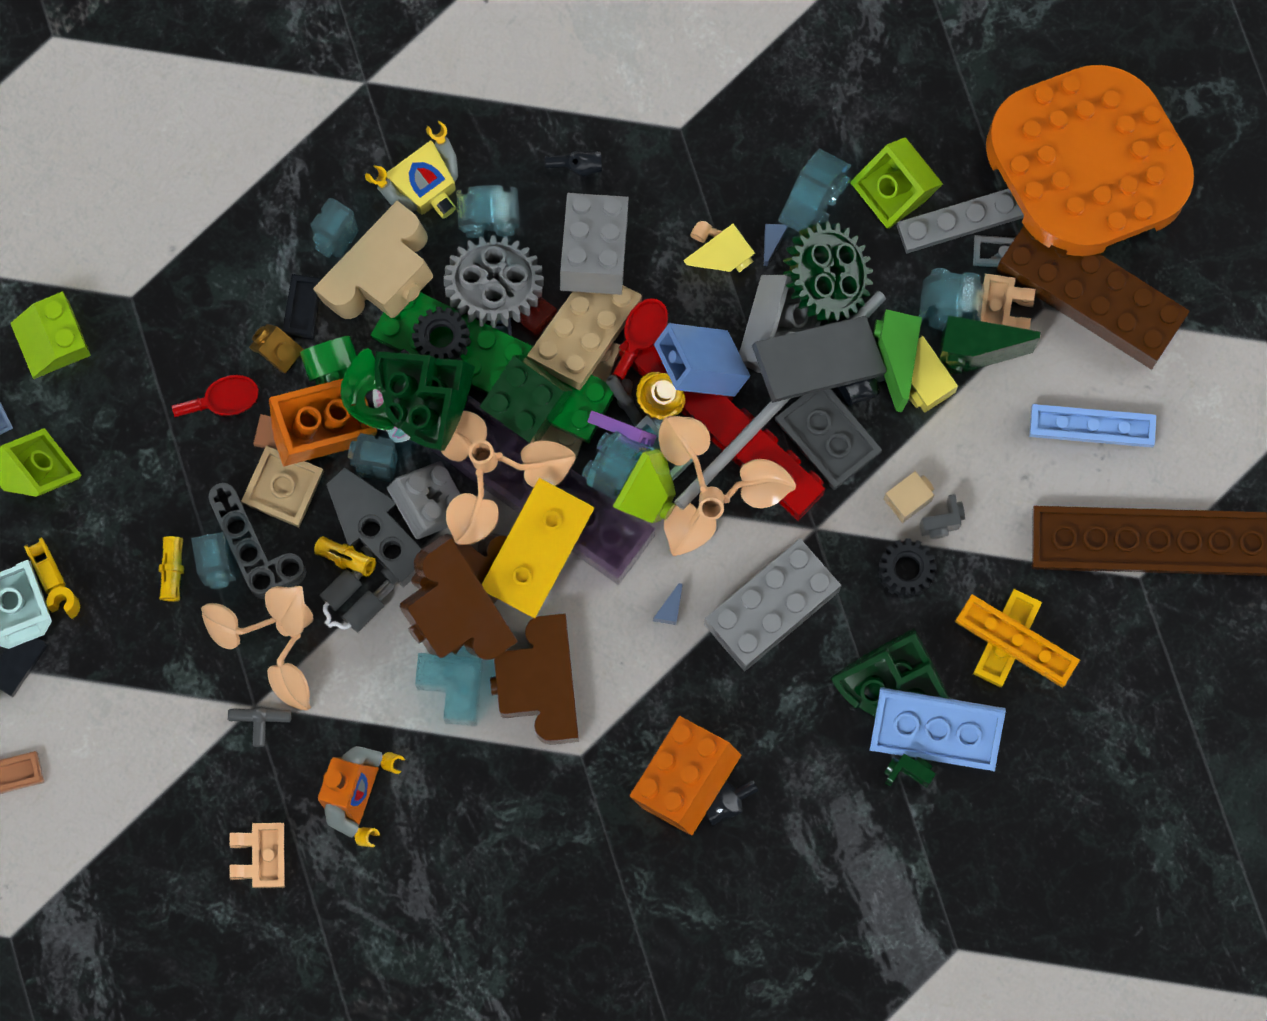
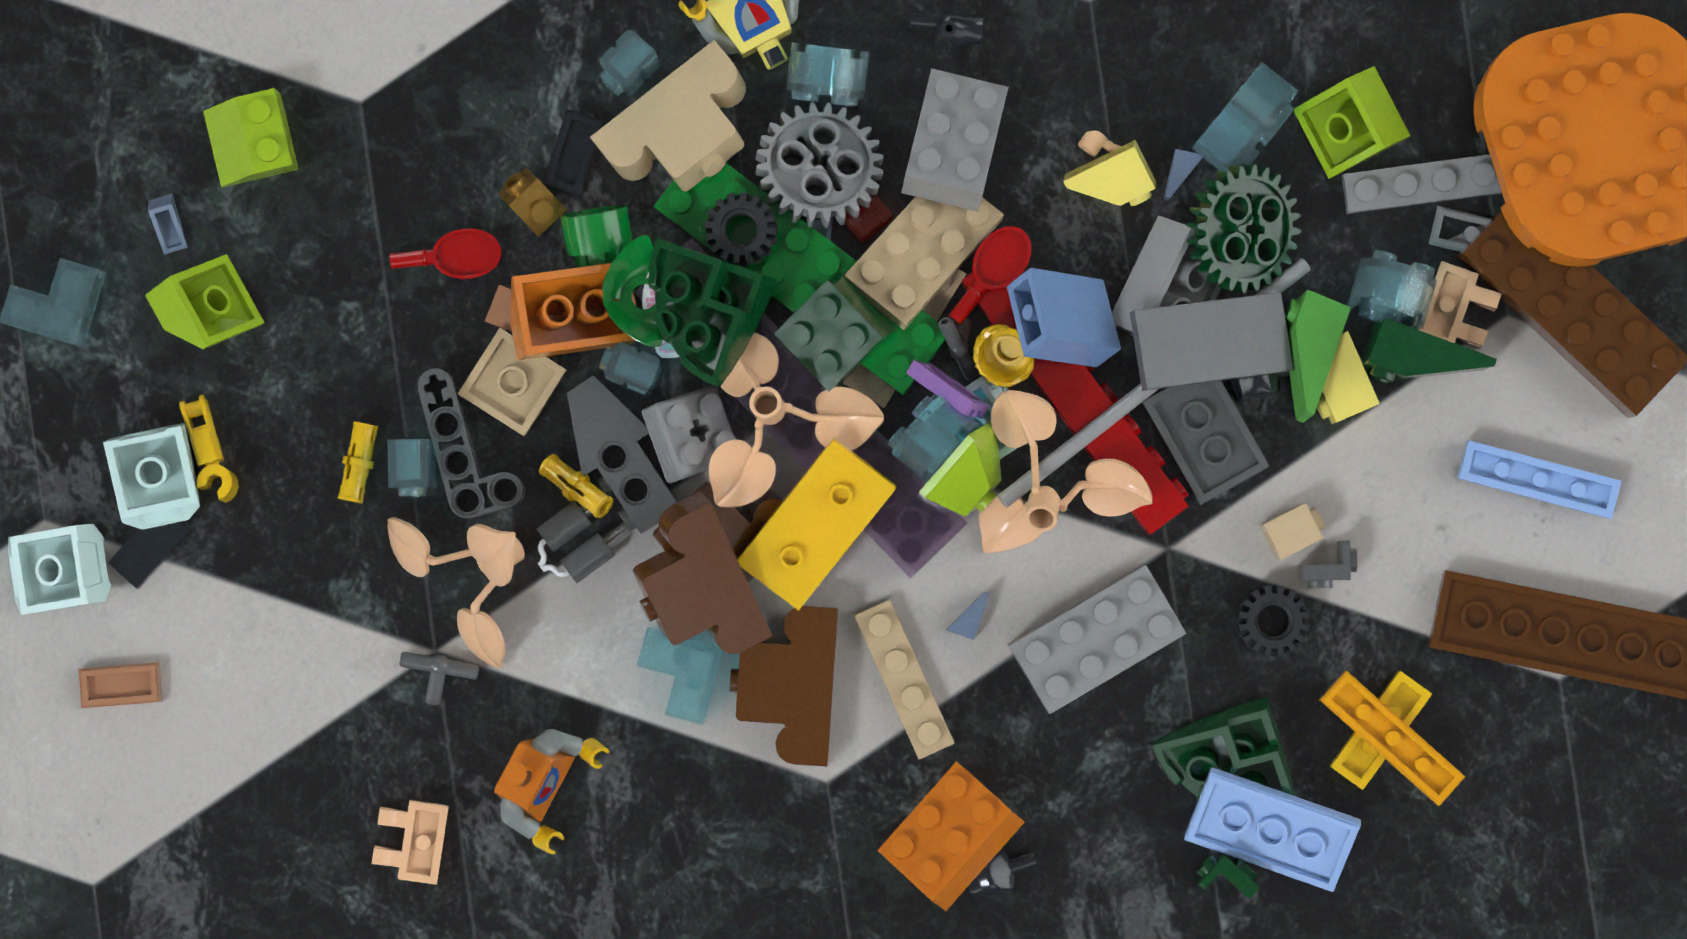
camera: 10 degrees right, 10 degrees up
(627, 664) = (904, 679): none -> tan plate

